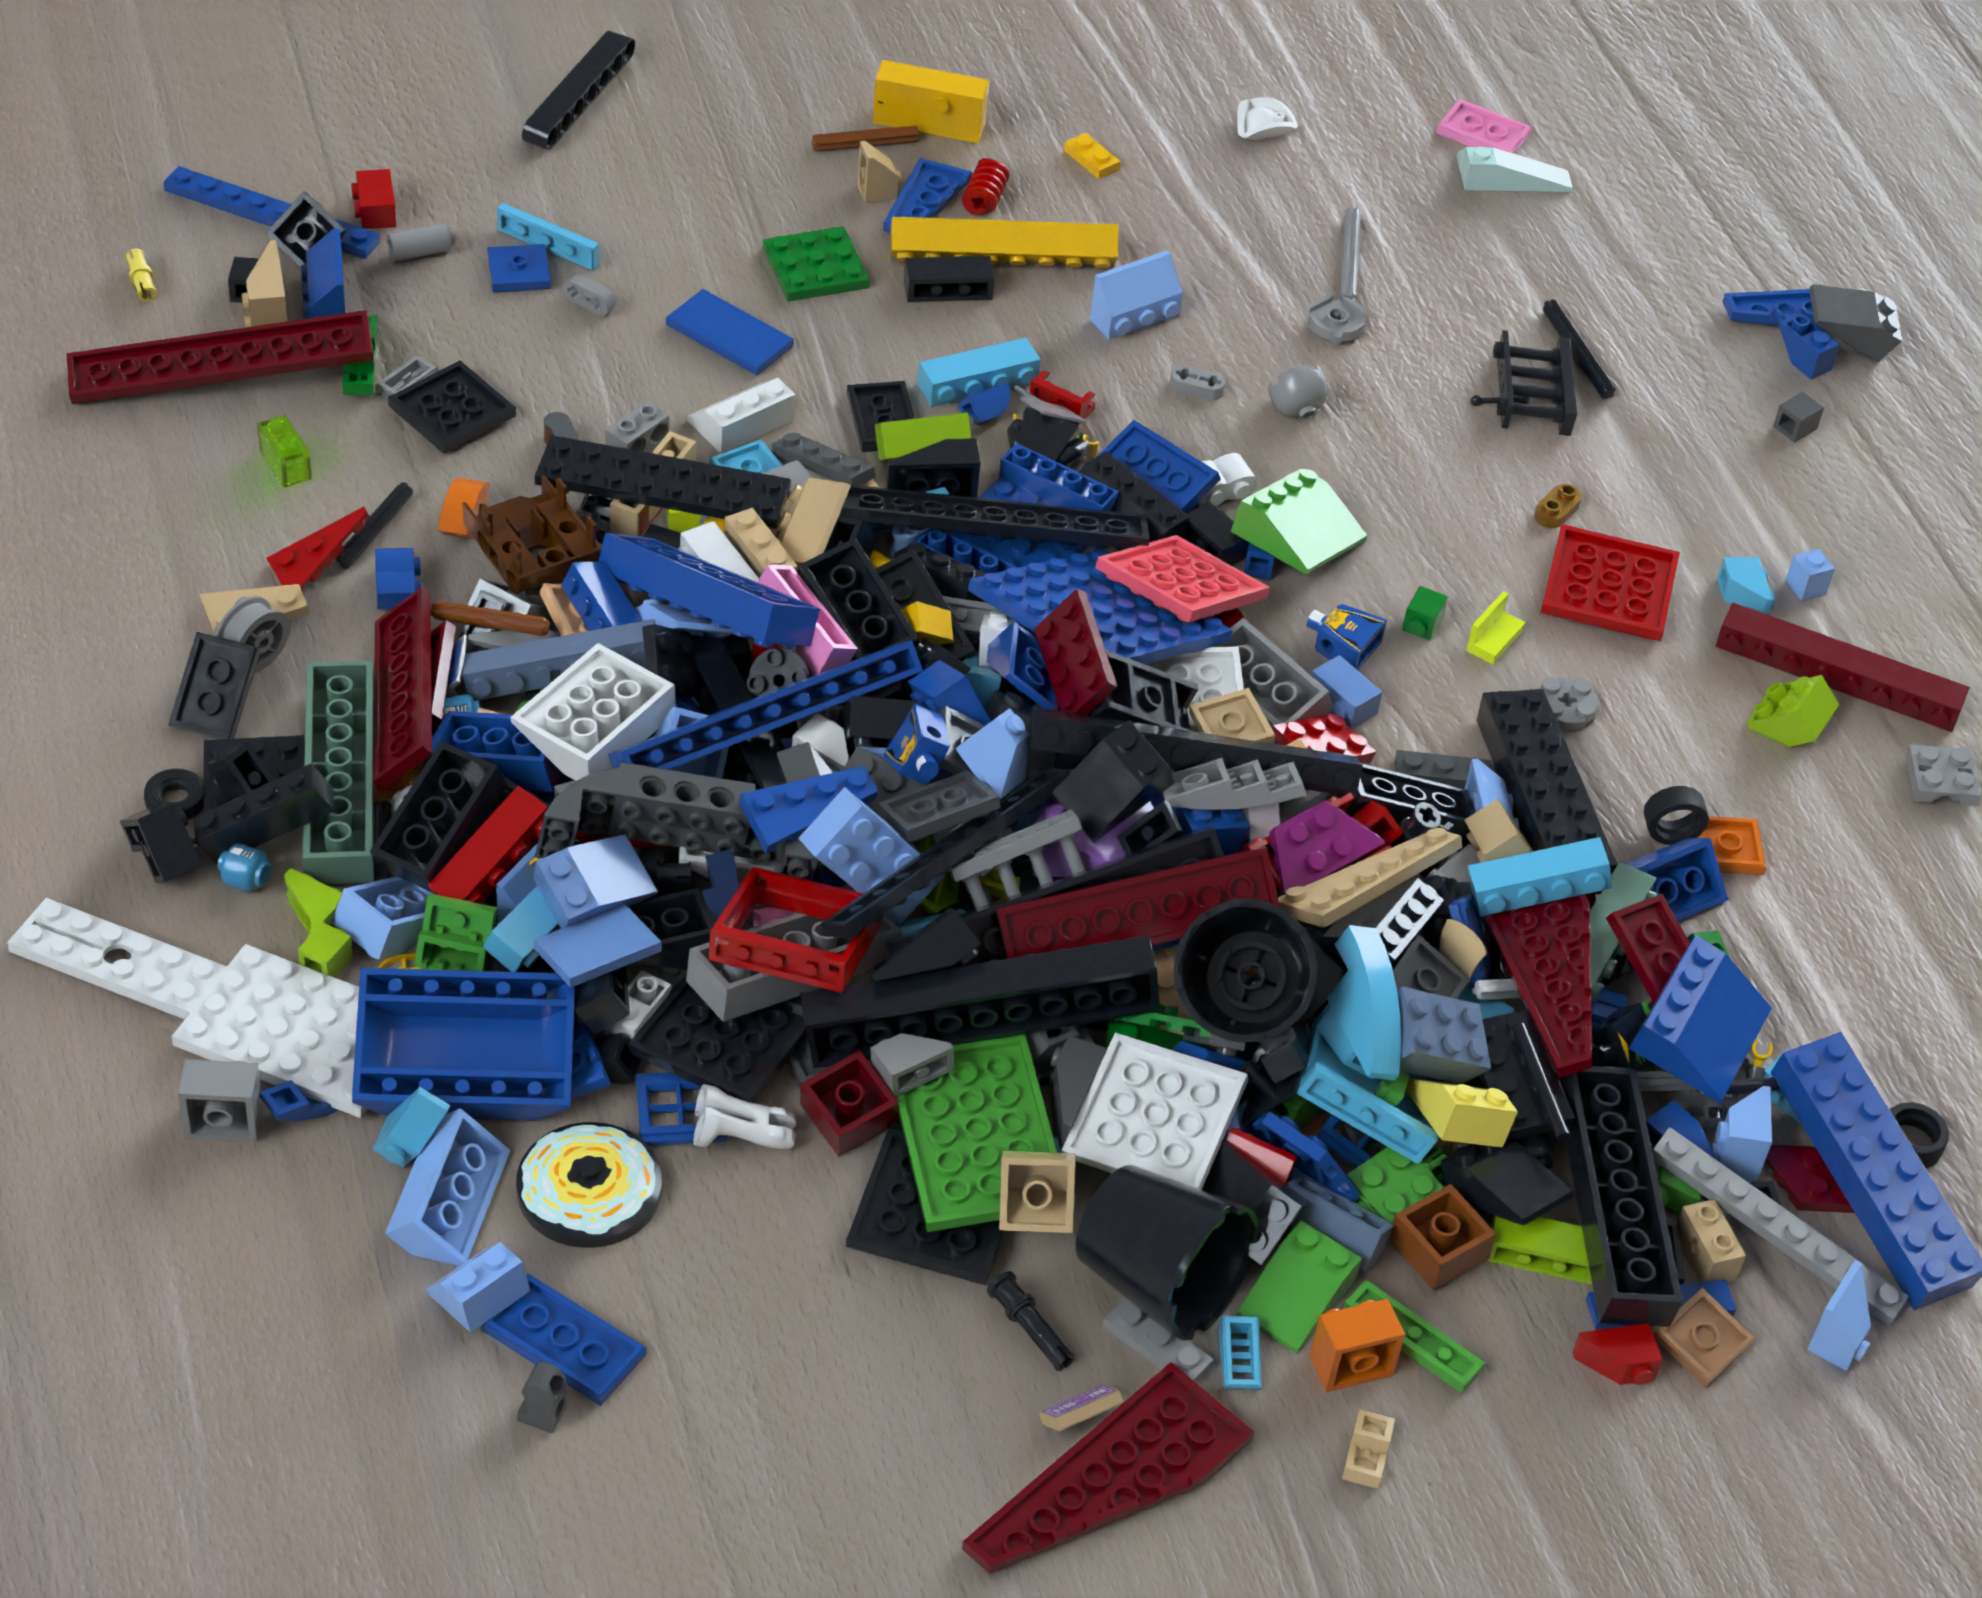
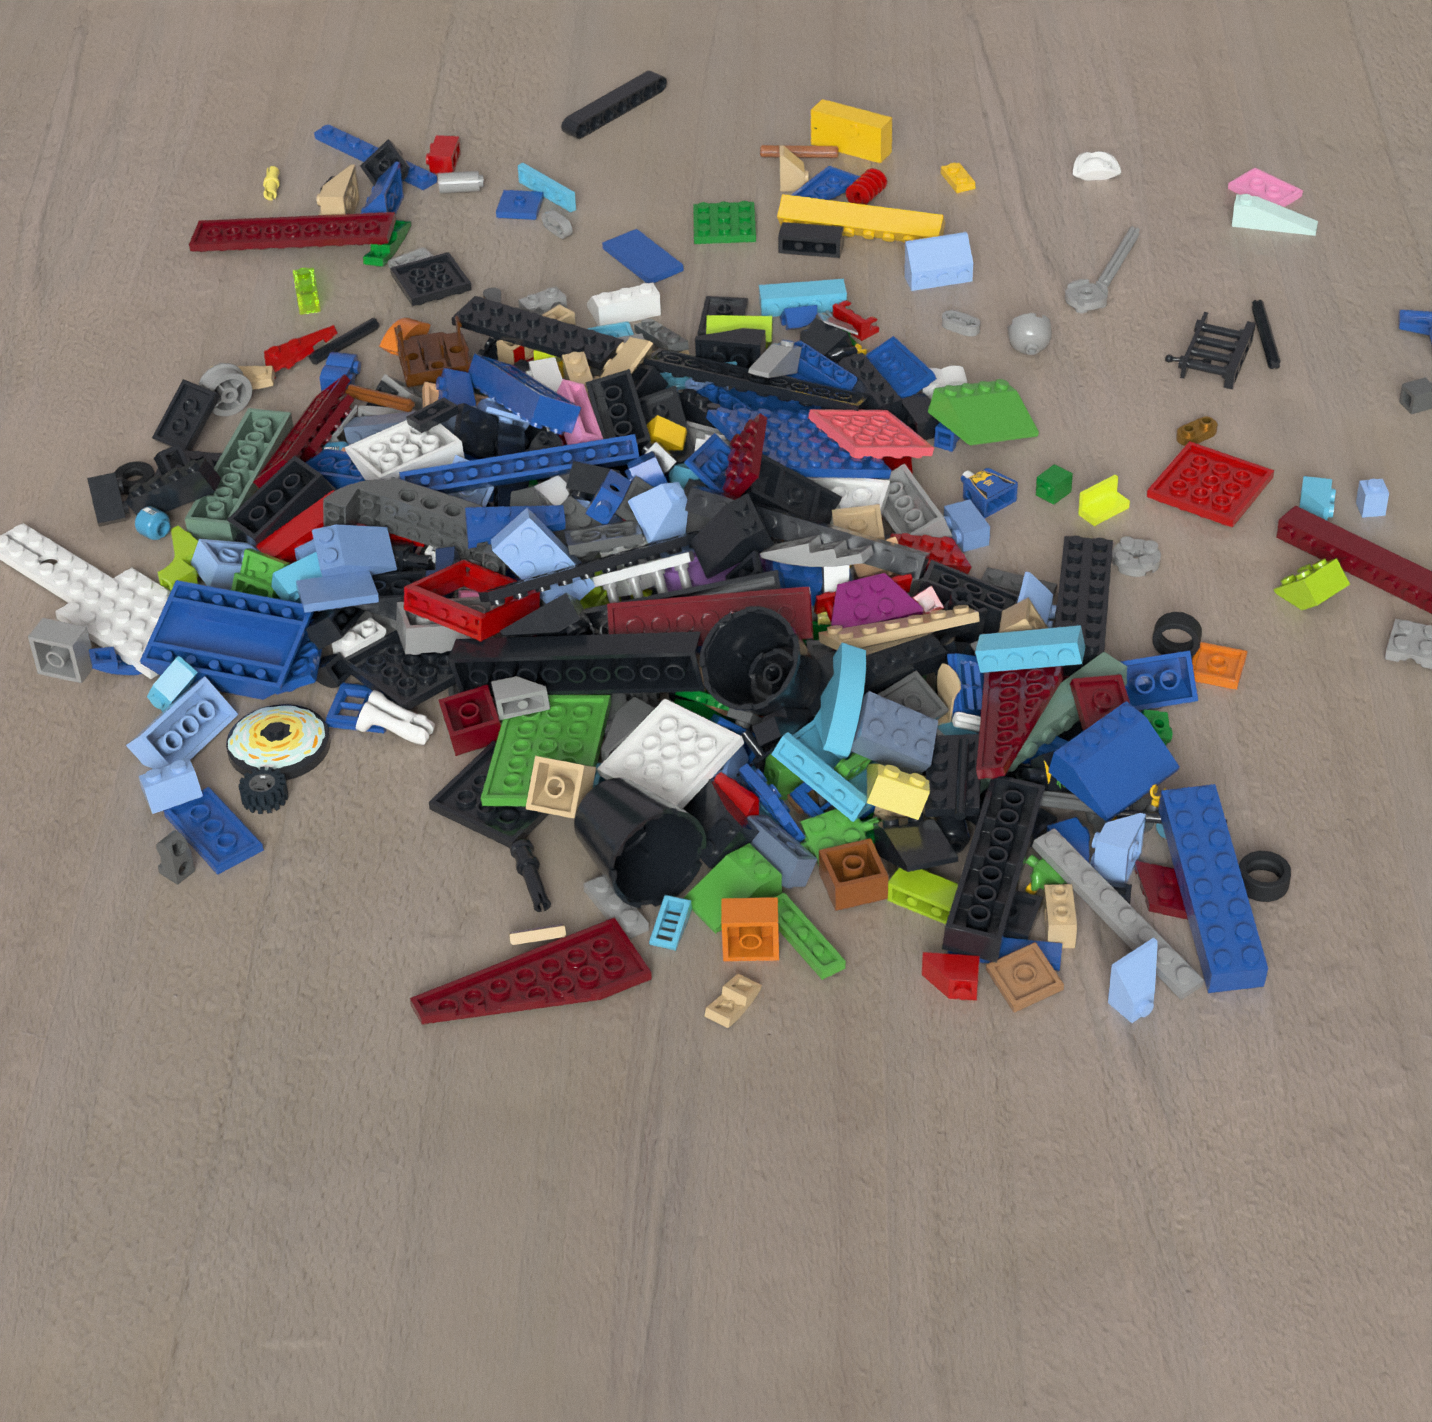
camera: 25 degrees right, 5 degrees down
(605, 1252) = (263, 790): none -> black wheel
(618, 650) = (432, 415): none -> black plate
(1010, 482) = (777, 360): none -> light grey slope

